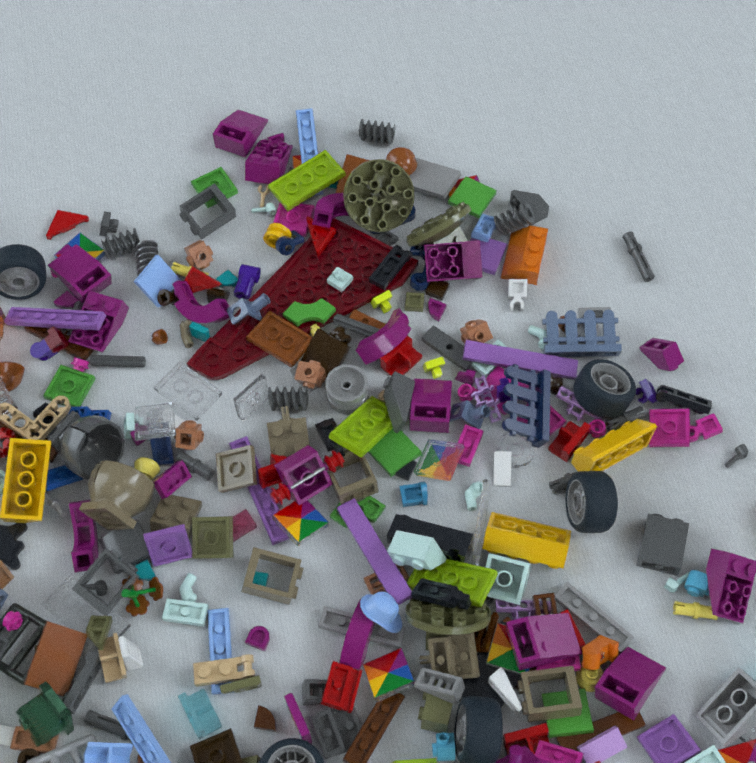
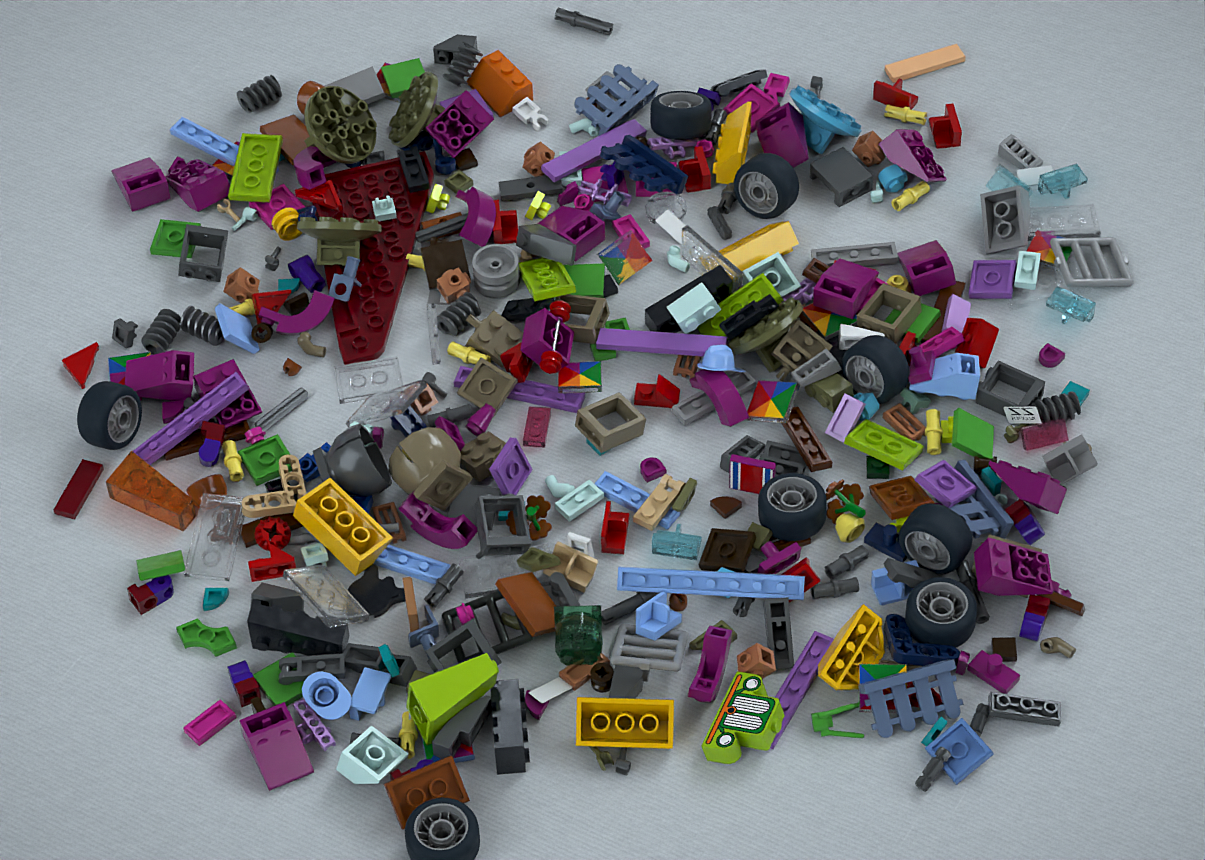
camera: 50 degrees left, 10 degrees down
(36, 584) = (444, 585): none -> dark grey pin
(46, 547) = (411, 564): none -> light blue tile
(49, 368) = (232, 461): none -> light yellow pin
(65, 500) = (401, 535): none -> nougat tile
(176, 658) = (614, 531): none -> red panel
(199, 331) = (322, 334): teal tile -> none
(204, 488) = (480, 420): none -> magenta cone
(212, 537) = (536, 437): olive plate -> none
(216, 427) = (429, 379): none -> dark grey hand
(240, 252) = (272, 262): none -> dark grey hand
(260, 433) = (467, 354): none -> light yellow pin
(280, 339) = (396, 283): dark orange tile -> none
(281, 272) = (336, 238): none -> olive bracket
(302, 313) = (397, 244): bright green tile -> none
(332, 585) = (662, 394): none -> red slope
(341, 687) = (752, 435): red plate -> none
(414, 494) = (636, 293): dark azure tile -> none
(417, 744) = (845, 417): none -> lavender tile
(436, 309) = (481, 173): magenta tile -> none
(484, 228) = (446, 91): light blue plate -> none
(536, 495) = (719, 222): none -> dark grey axle
(598, 652) = (887, 265): orange leg -> none
(653, 475) = (784, 134): none -> magenta slope
(662, 353) = (686, 66): magenta slope -> none
(703, 485) = (822, 119): none -> medium azure bracket
(707, 539) = (868, 149): none -> nougat brick

